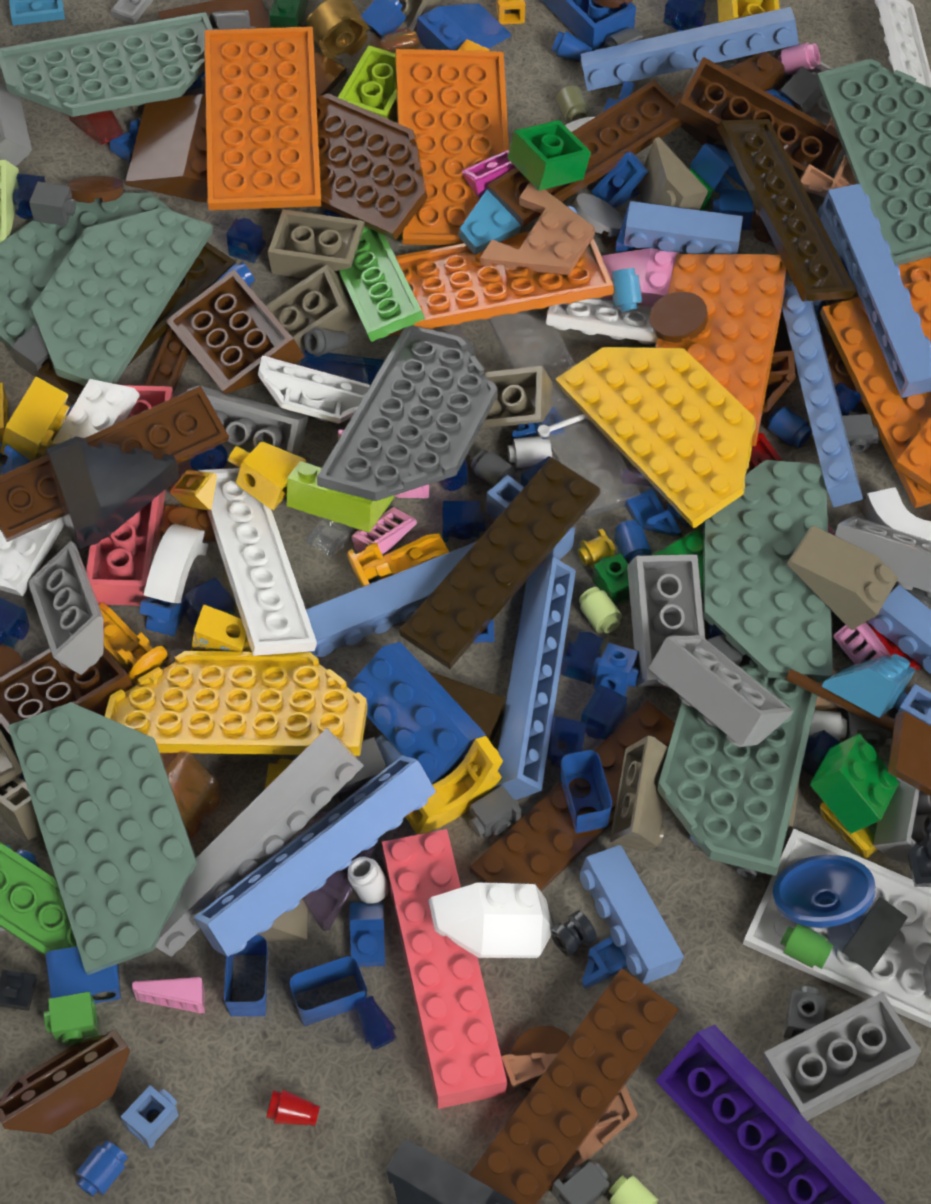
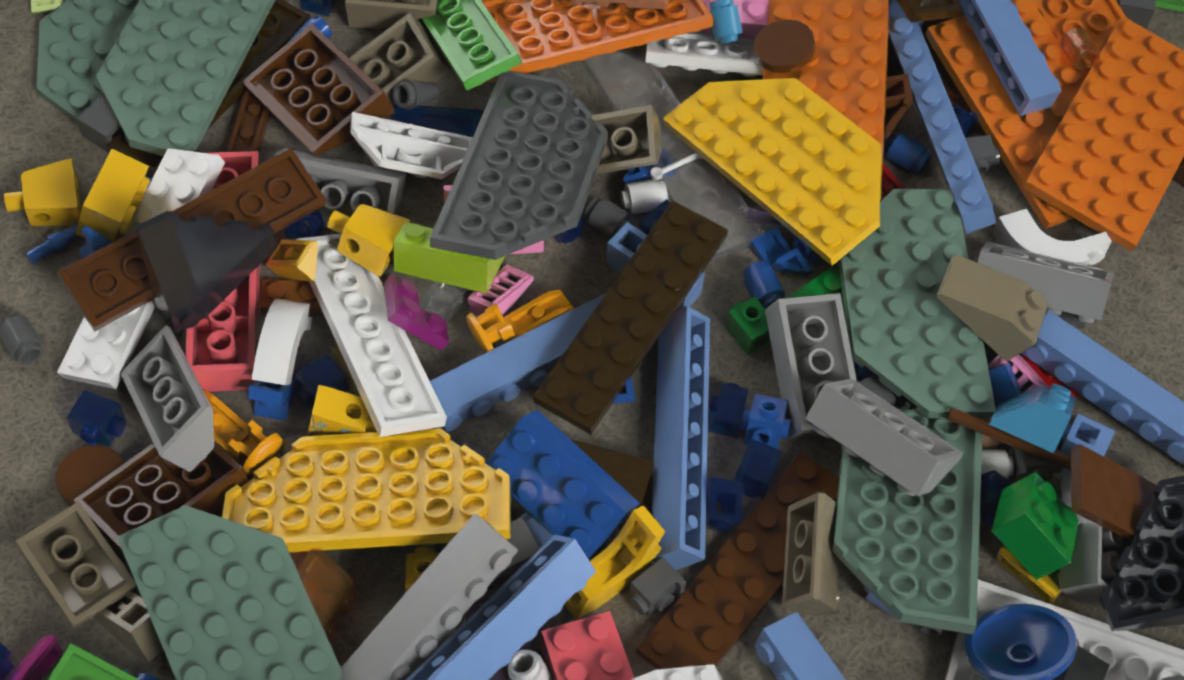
camera: 10 degrees left, 0 degrees up
(292, 544) = (405, 312): none -> magenta plate
(462, 520) = (582, 273): clear blue brick -> none
(586, 766) = (756, 531): blue piece -> none
(596, 549) = (727, 294): yellow brick -> none
(600, 610) = (739, 359): yellowish green brick -> none
(846, 651) = (1003, 382): none -> blue tile

